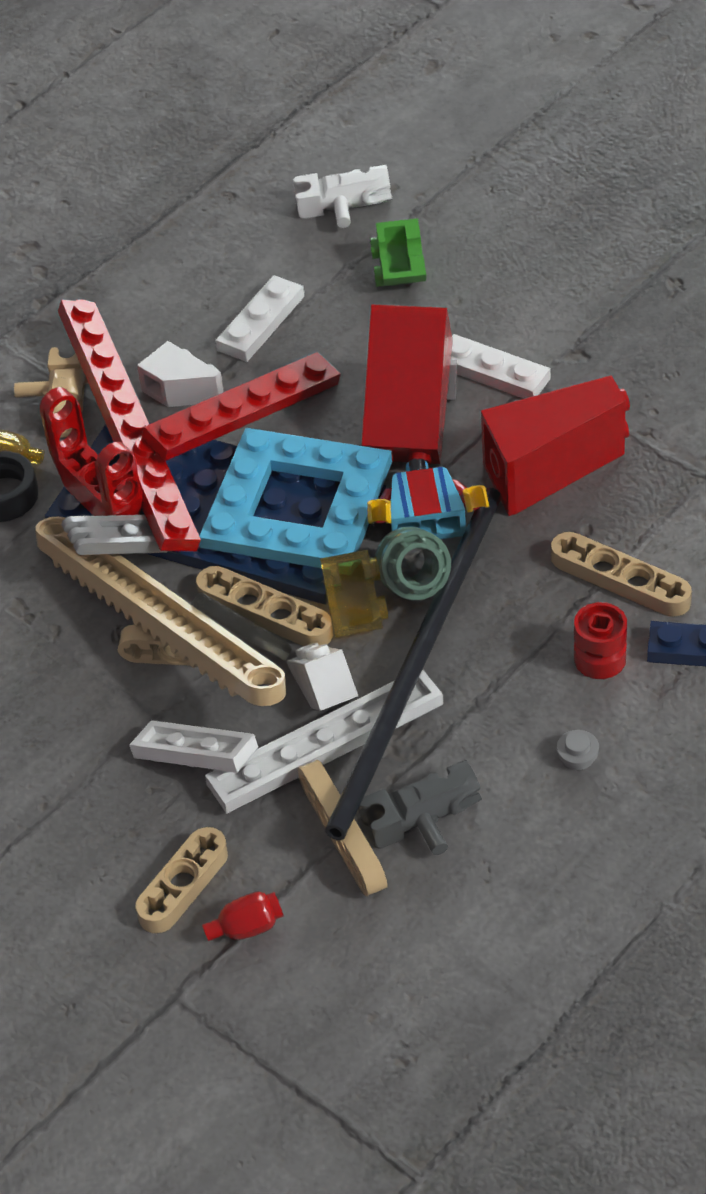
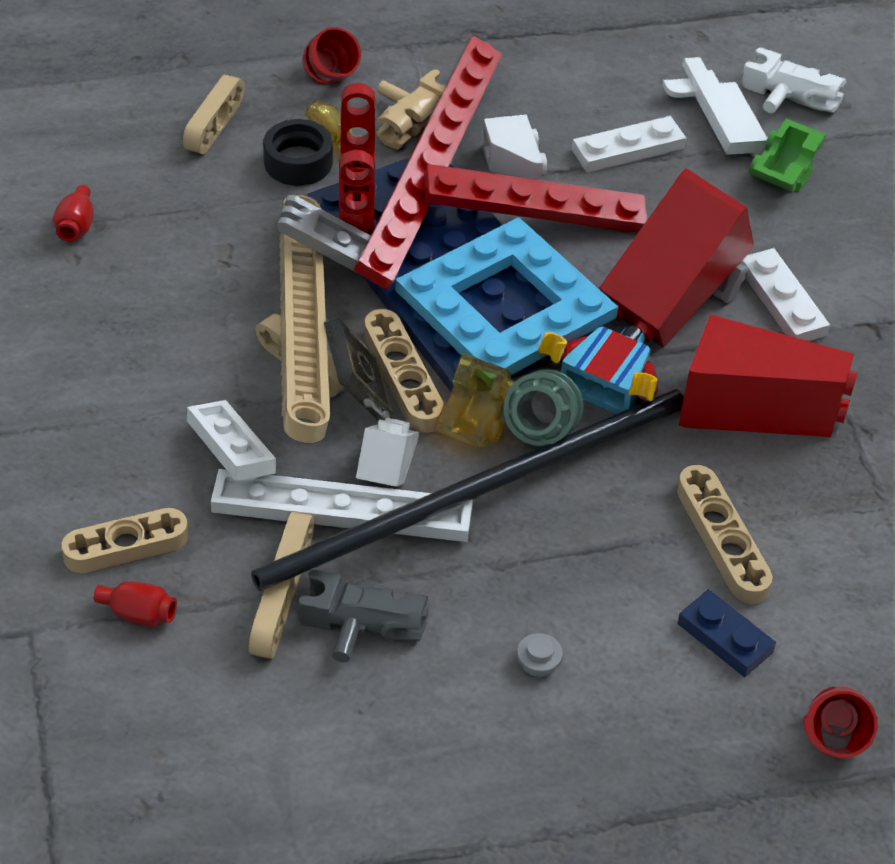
camera: 30 degrees right, 0 degrees up
(307, 243) = (723, 107): none -> white piece
(600, 640) = (642, 575): red wheel -> none

